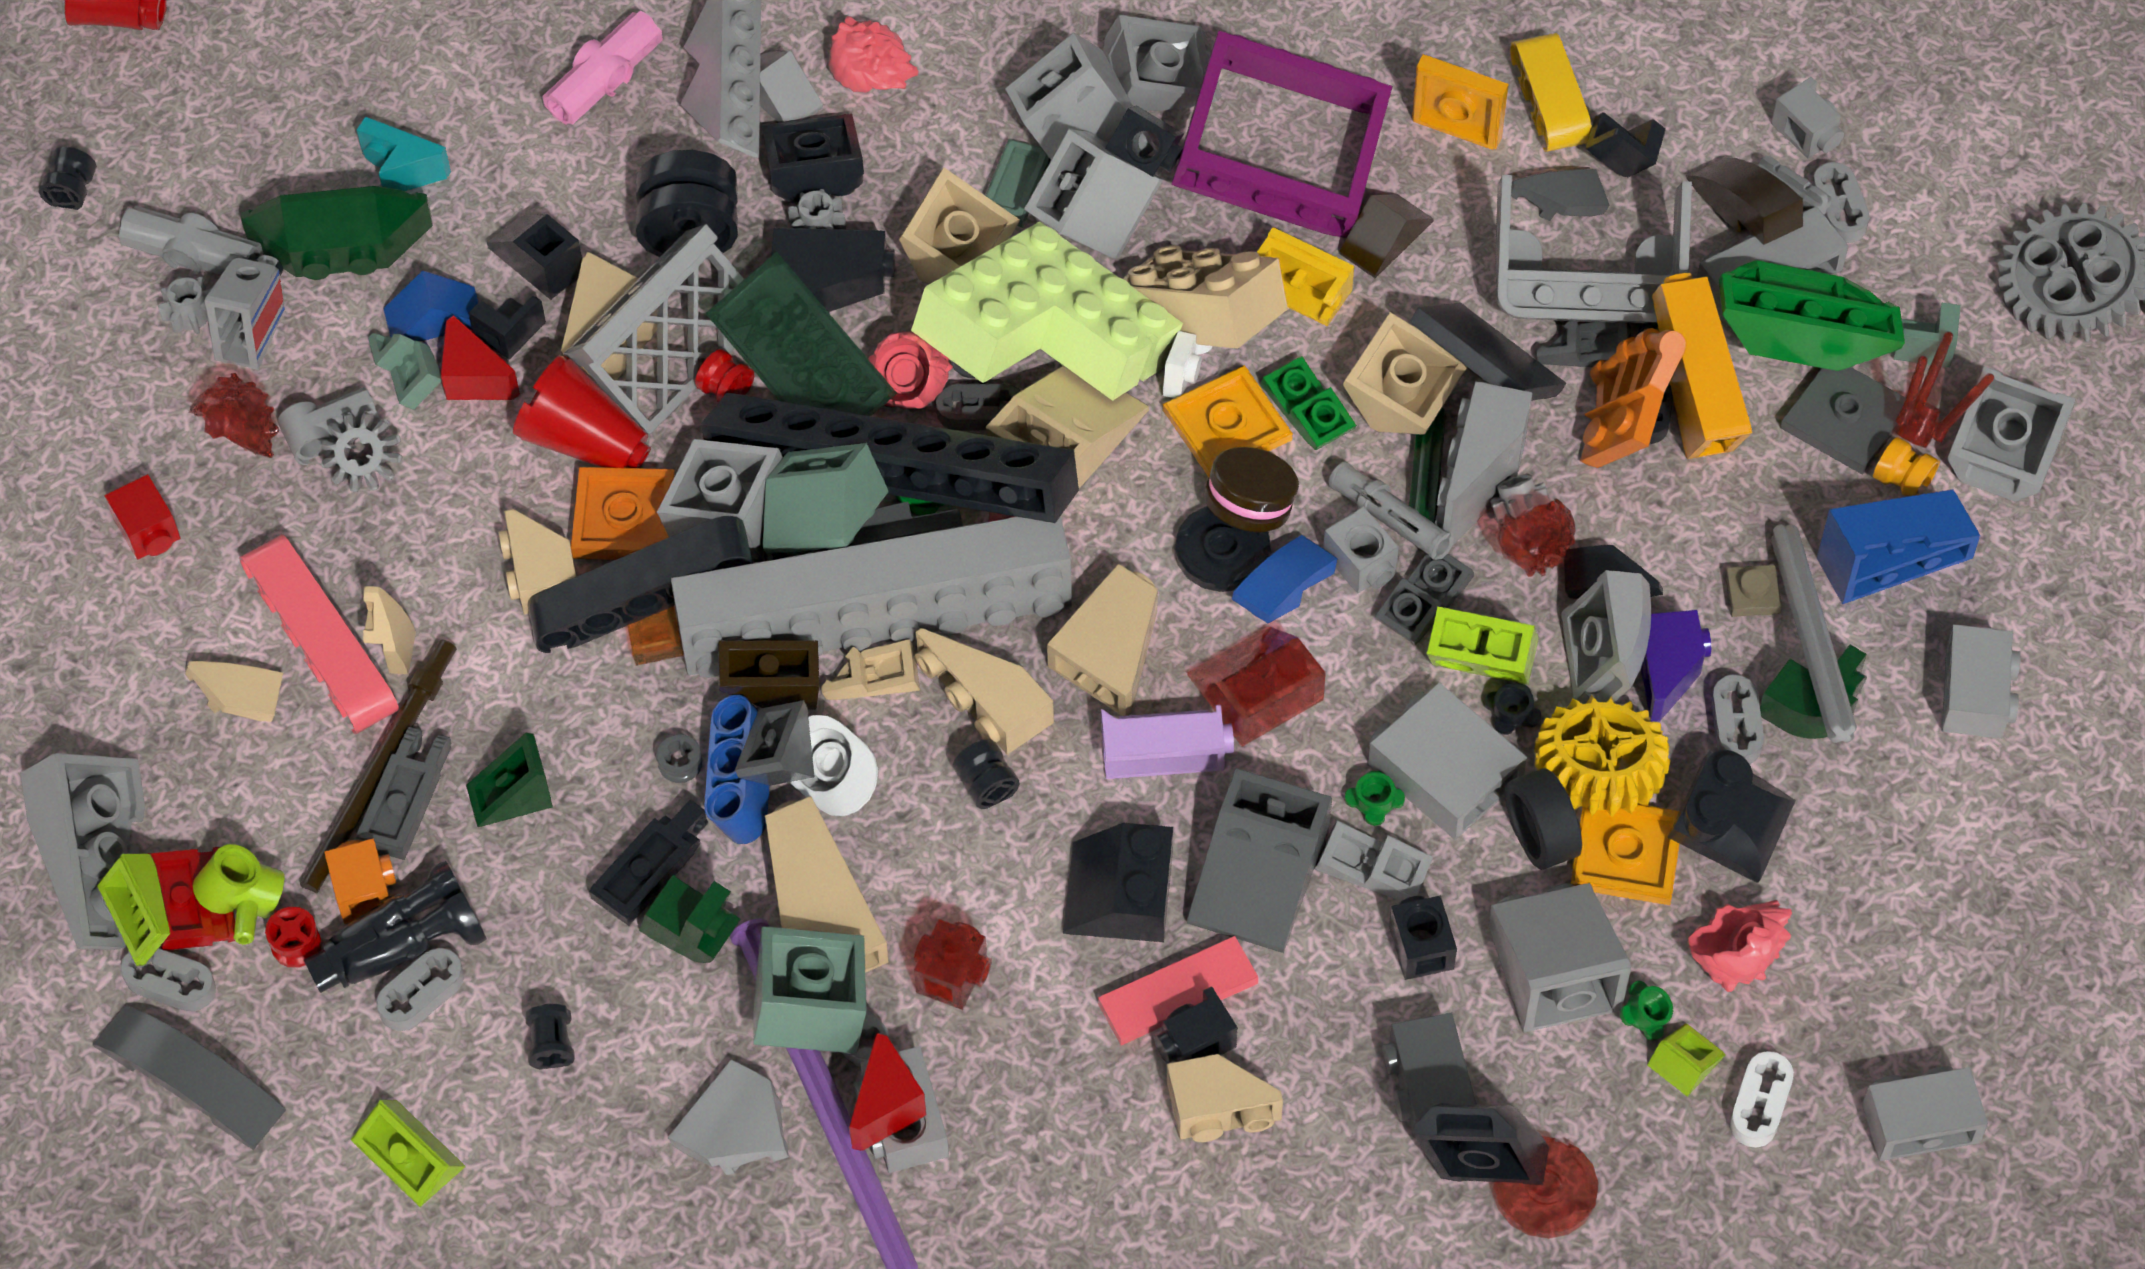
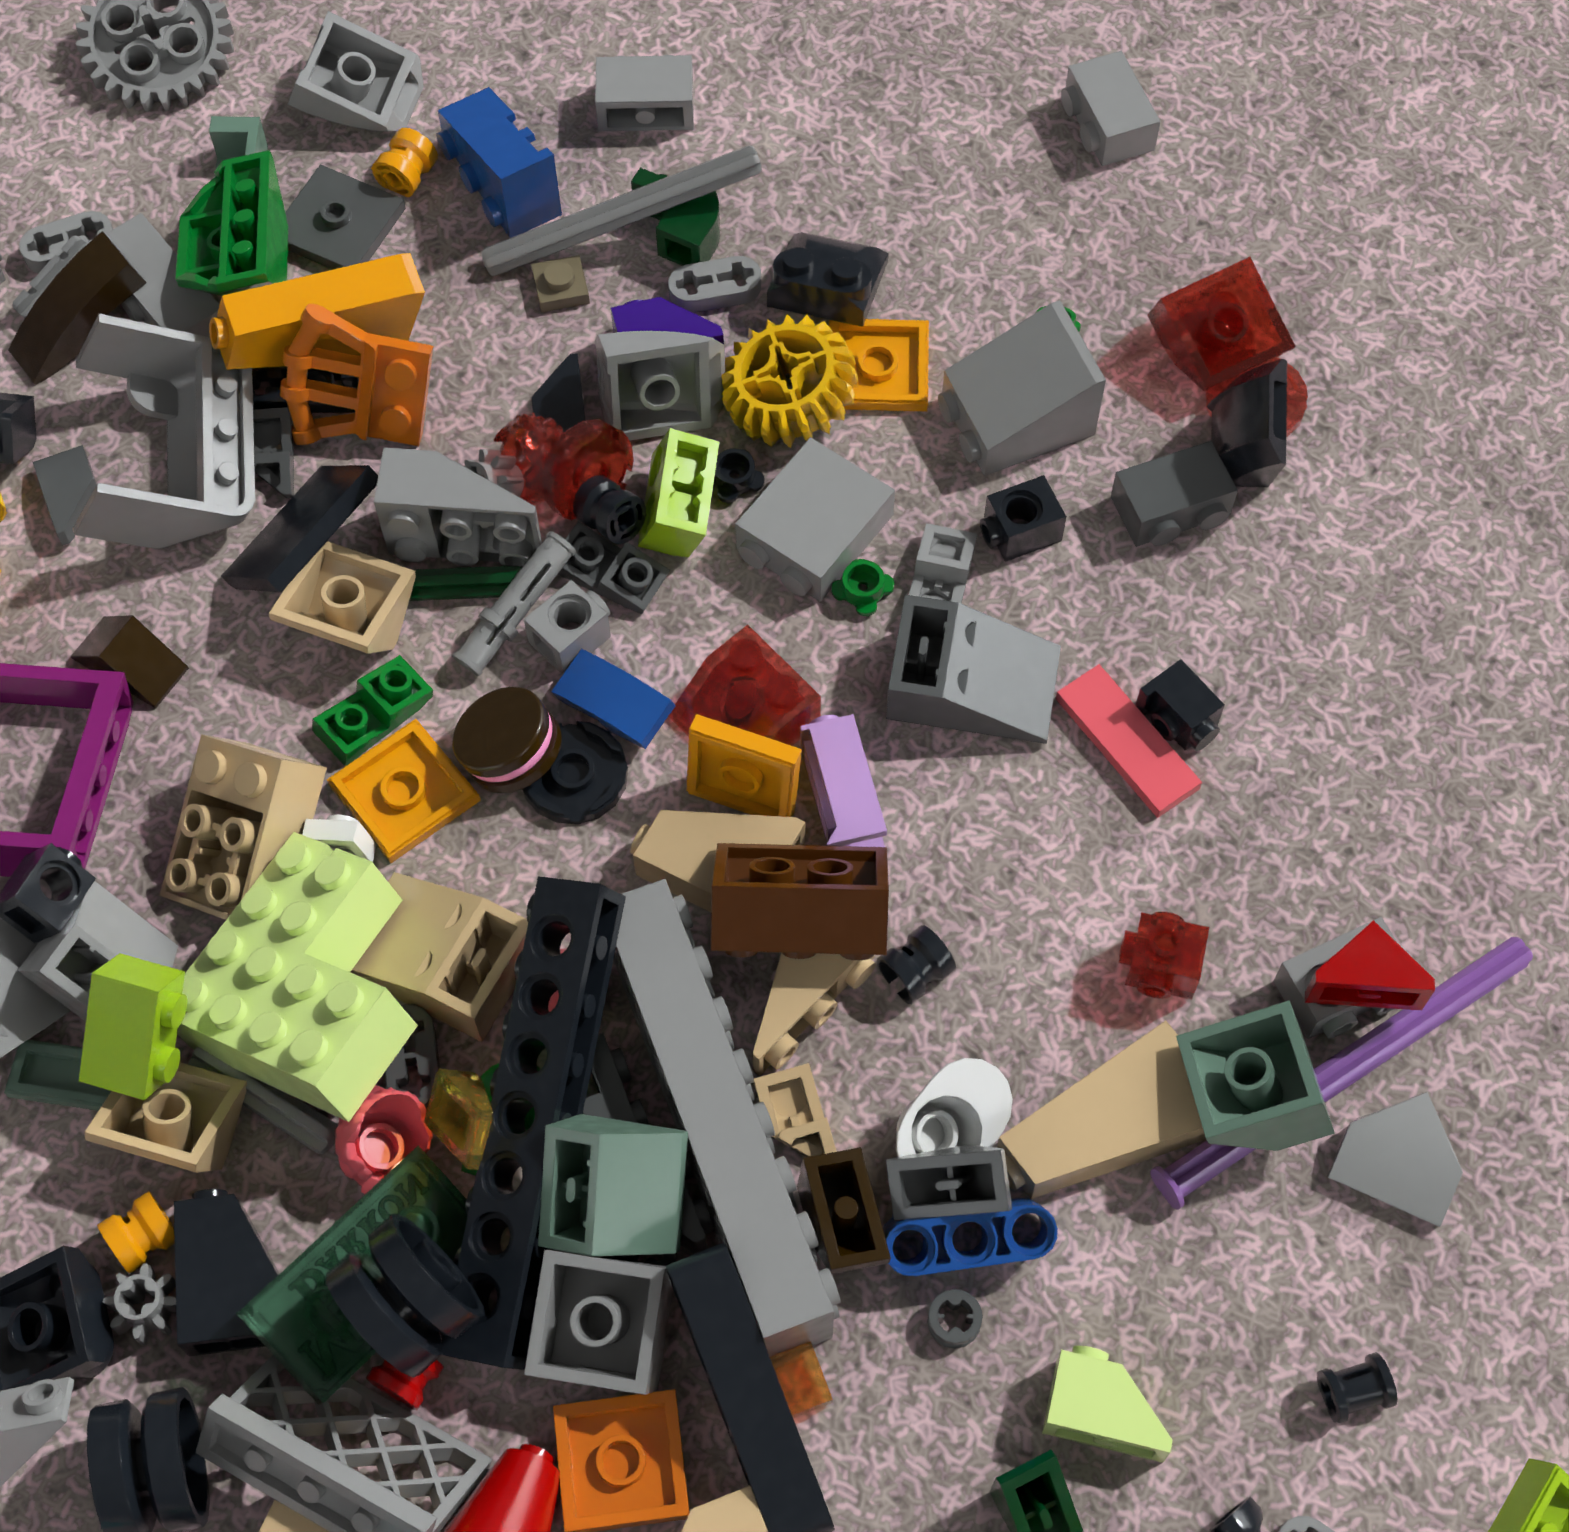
camera: 100 degrees left, 5 degrees up
(580, 843) = (1102, 1407): none -> yellowish green slope
(649, 863) = (1105, 1320): black hinge -> none
(690, 921) = (1179, 1249): dark green brick -> none
(758, 347) = (404, 1295): none -> black wheel
(871, 211) = (138, 1232): none -> light orange wheel
(903, 408) = (460, 1114): none -> clear yellow slope
(1018, 193) = (132, 1026): none -> lime brick
(1045, 667) = (800, 900): none -> reddish brown slope
(1120, 883) = (1024, 805): black slope -> none
(1182, 653) = (742, 769): none -> light orange tile
(1219, 1096) = (1253, 680): tan slope -> none
(1312, 279) = (206, 708): yellow hinge -> none
(1475, 587) = (609, 509): none -> black wheel
(1513, 571) = (579, 454): none -> clear red tile
(1543, 818) = (877, 417): black tyre -> none
(1619, 1153) = (1221, 325): none -> clear red slope
(1685, 1058) = (1094, 297): lime slope -> none
(1740, 942) = (971, 250): coral hair -> none
(1750, 1095) = (1121, 235): white beam -> none
(1919, 419) = (346, 151): clear red plant -> none

